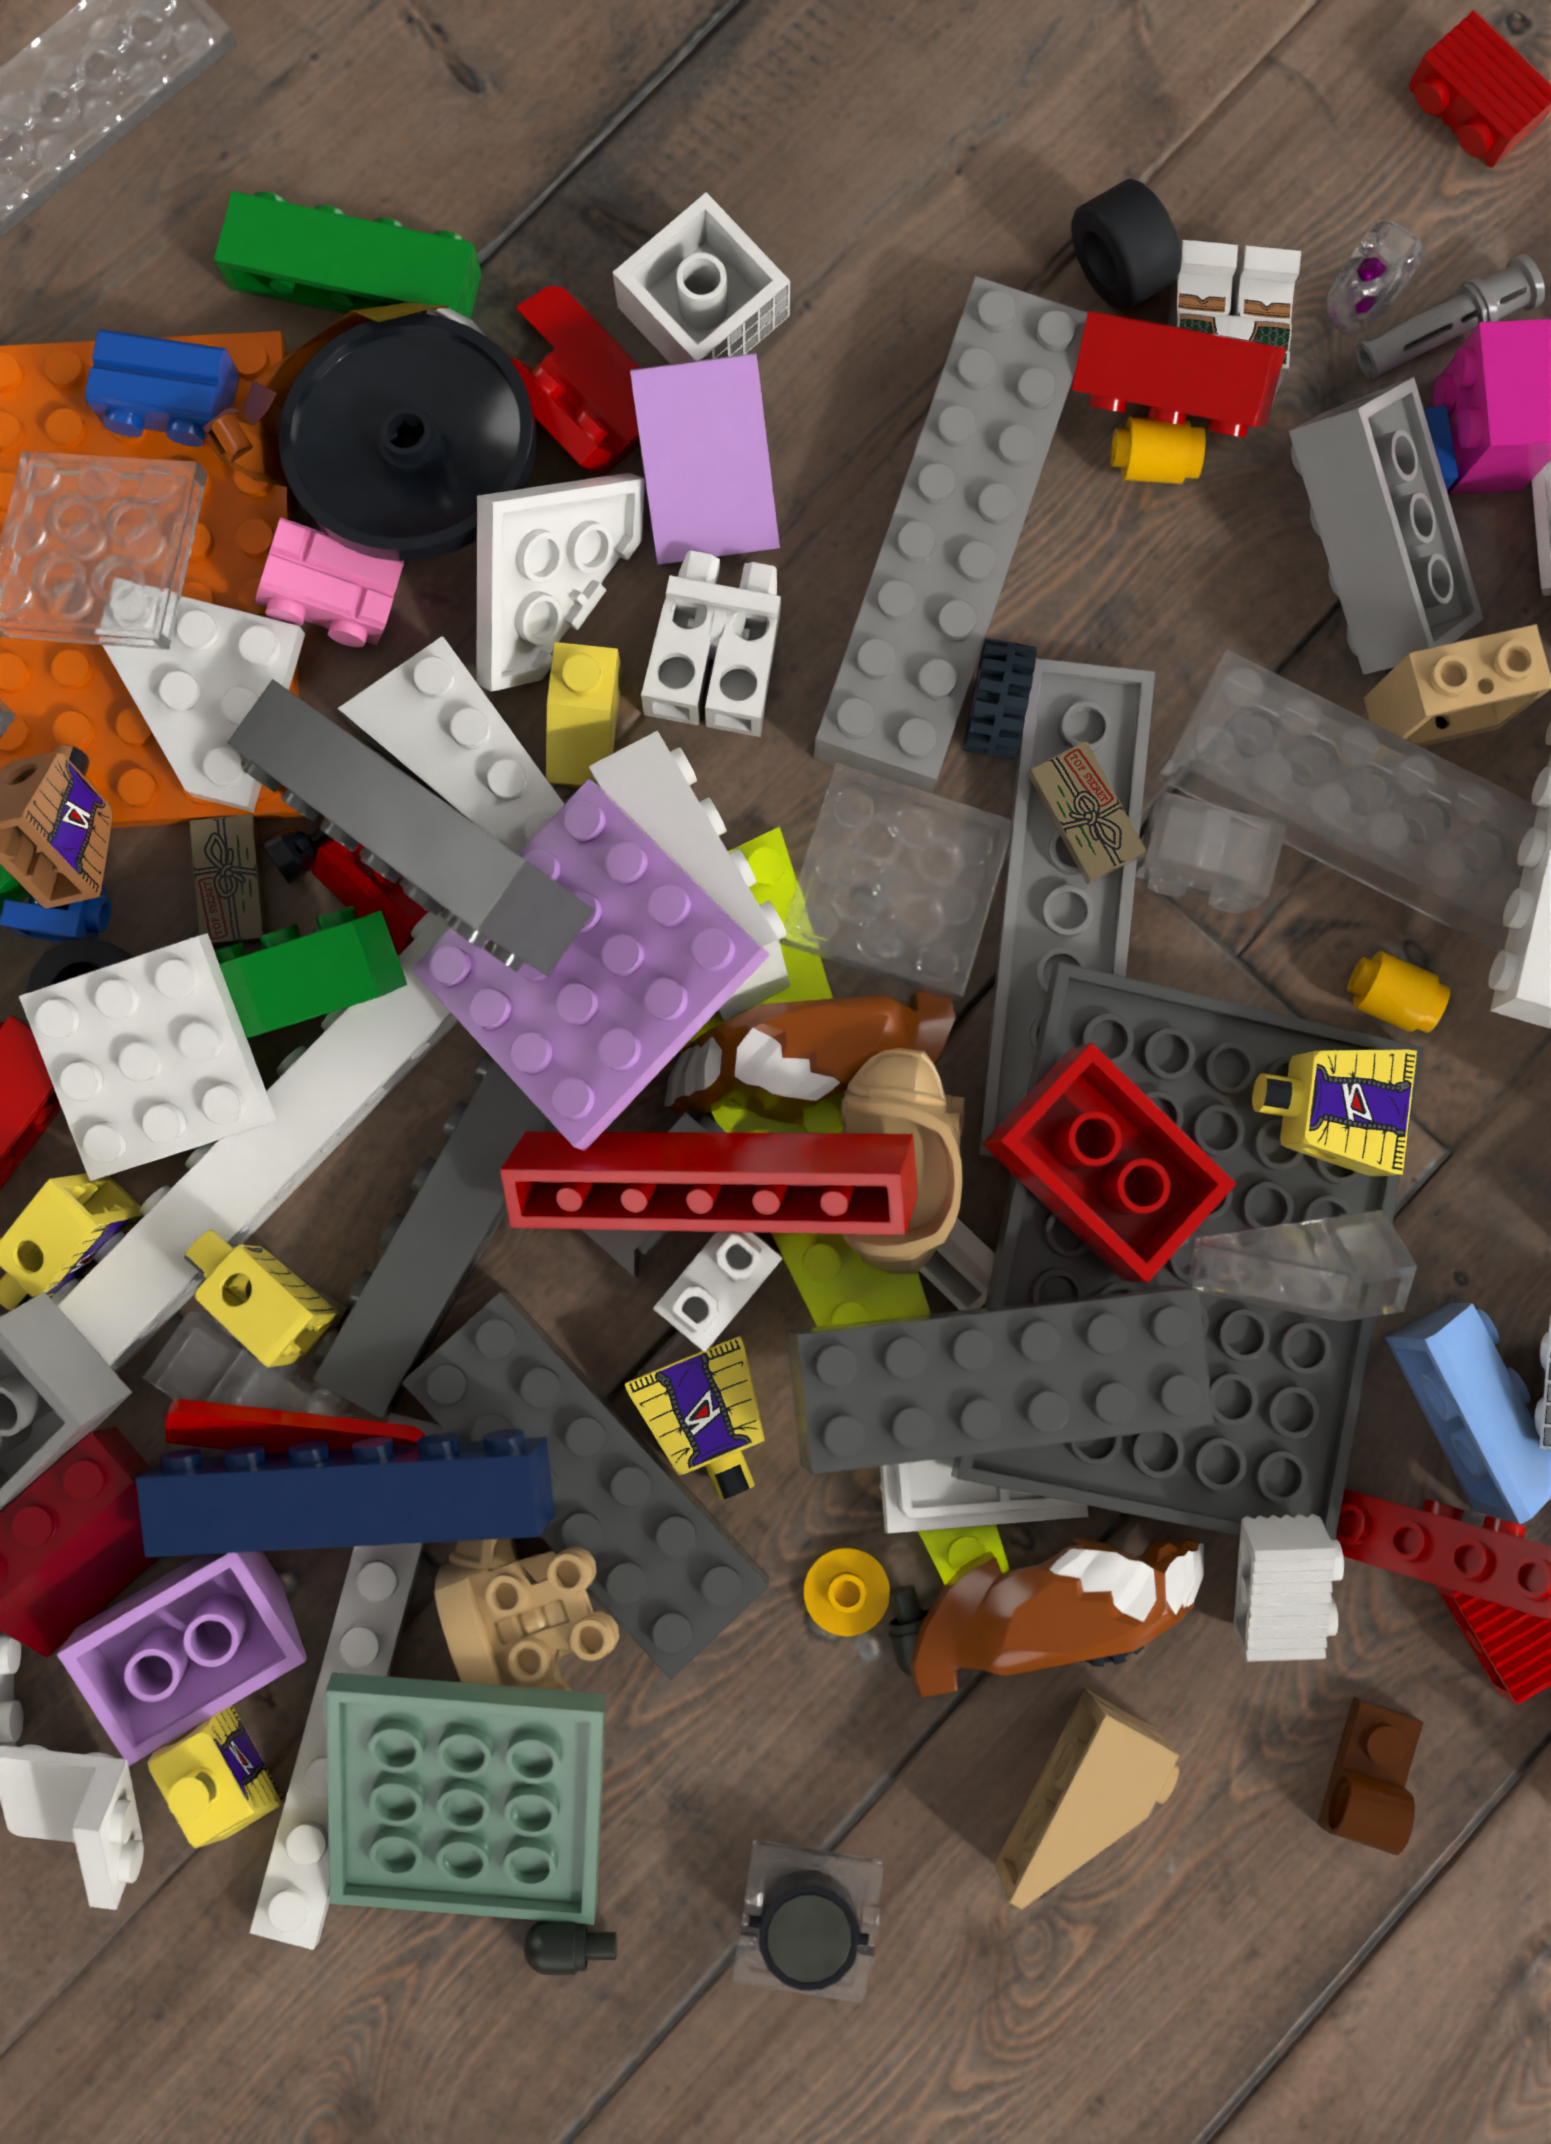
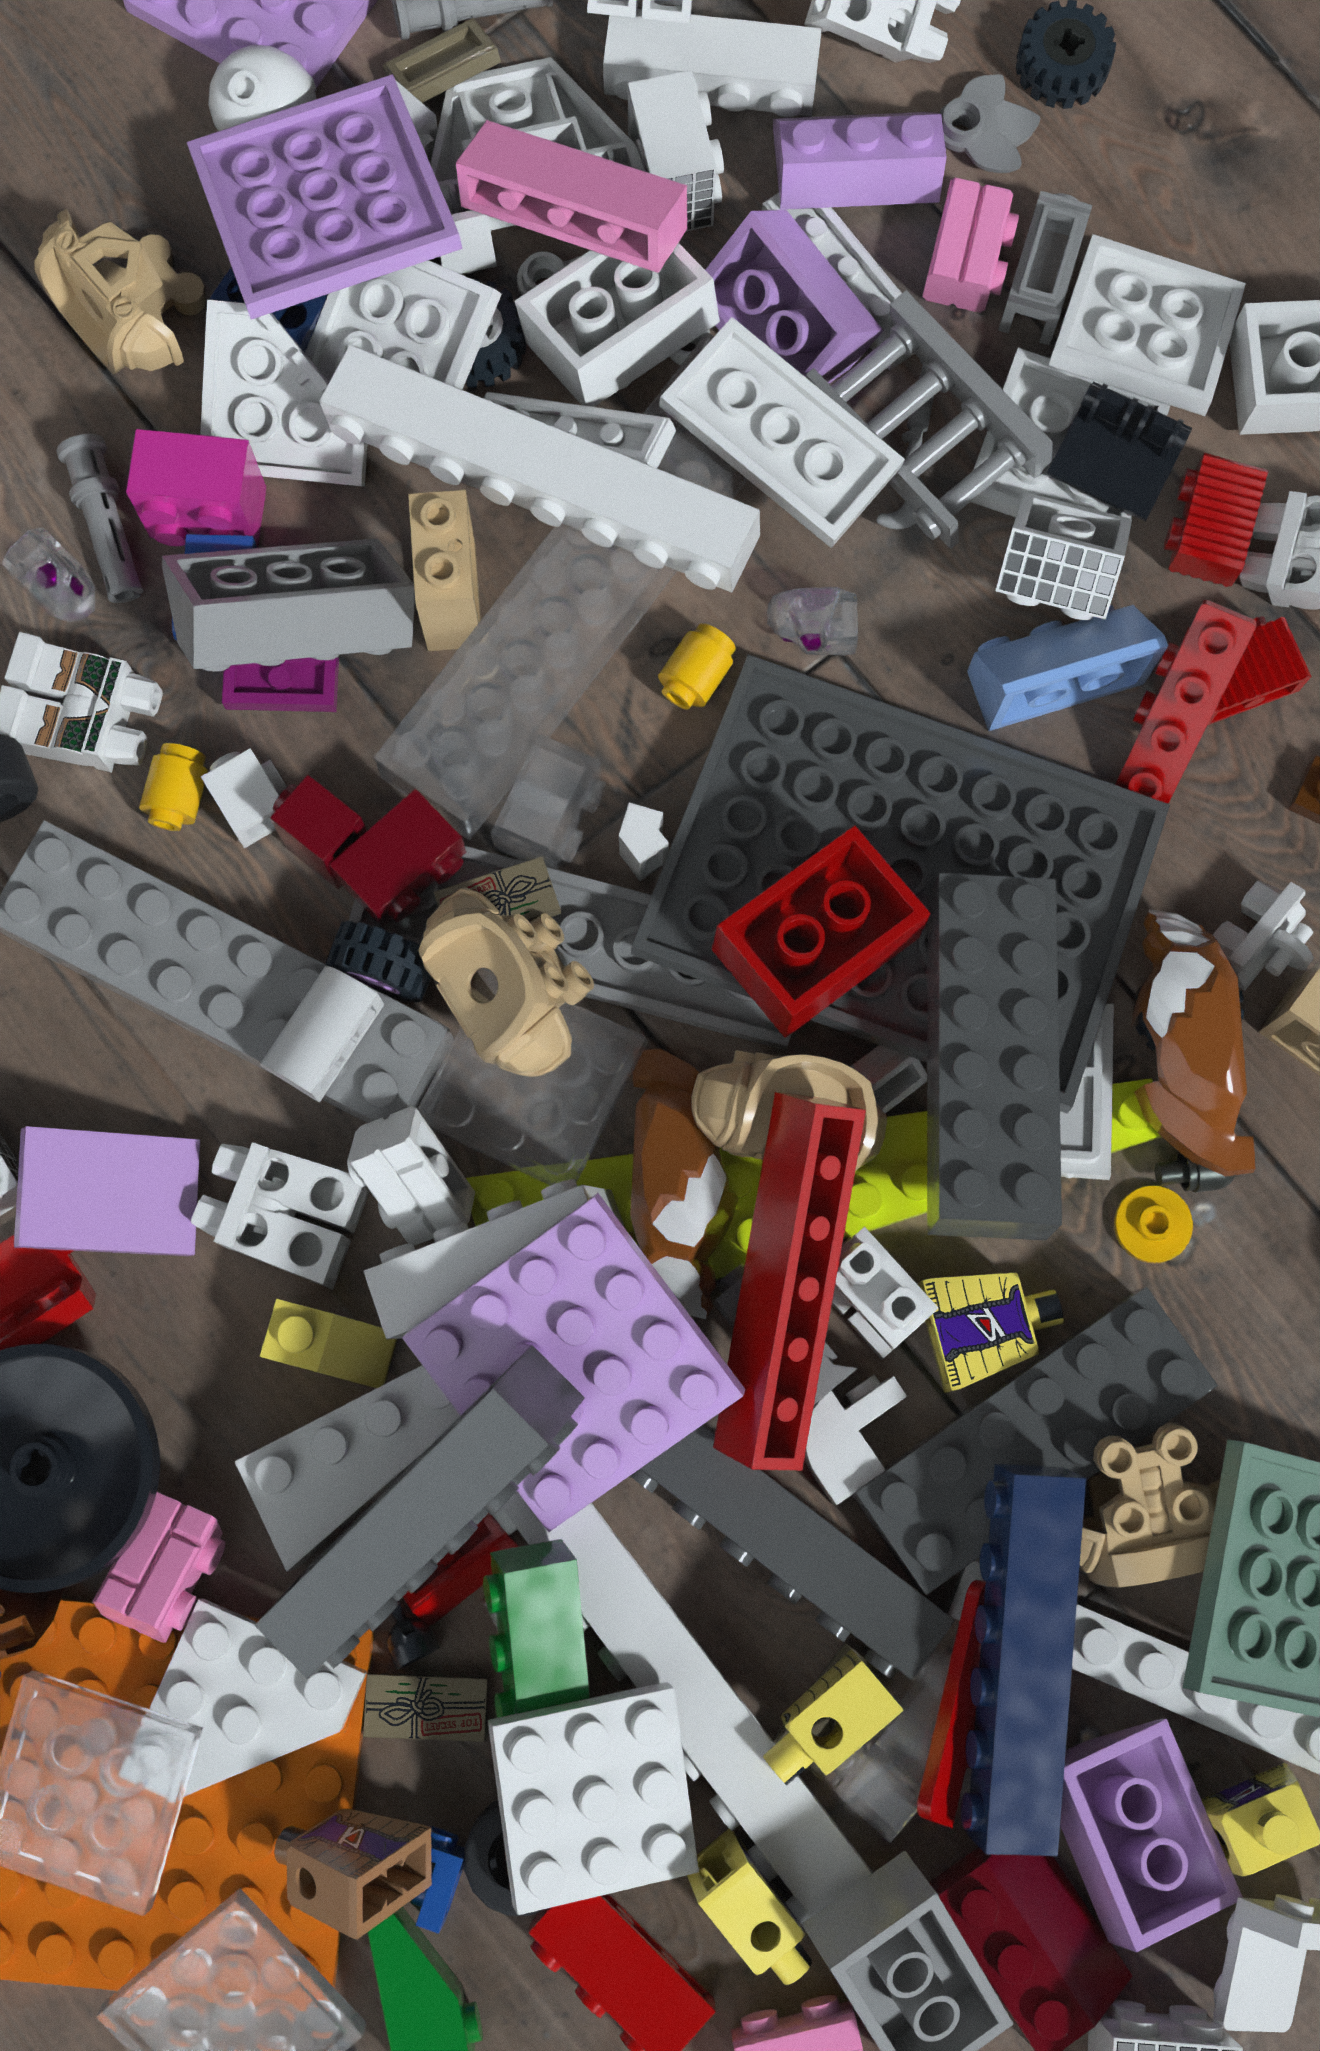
camera: 80 degrees left, 5 degrees down
(544, 568) = (183, 1358): white plate -> none
(553, 1264) = (836, 1449): none -> white brick
(769, 766) = (409, 1175): none -> white brick
(904, 643) = (323, 1032): none -> white brick
(997, 828) = (523, 1022): none -> tan piece
(1115, 696) = (400, 859): none -> dark red brick
(1133, 607) = (315, 825): none -> dark red brick
(1160, 527) = (245, 793): none -> white brick
(1177, 372) = (113, 756): red brick -> none
(1186, 959) = (642, 840): none -> white piece
(1190, 1692) = (1277, 916): none -> white hips
(1286, 1588) = (1195, 847): white brick -> none
(1292, 547) = (291, 686): none -> magenta plate
(1316, 1267) = (931, 769): clear slope -> none
(1344, 1107) = (794, 727): torso -> none
(1479, 1118) = (816, 619): none -> clear rock

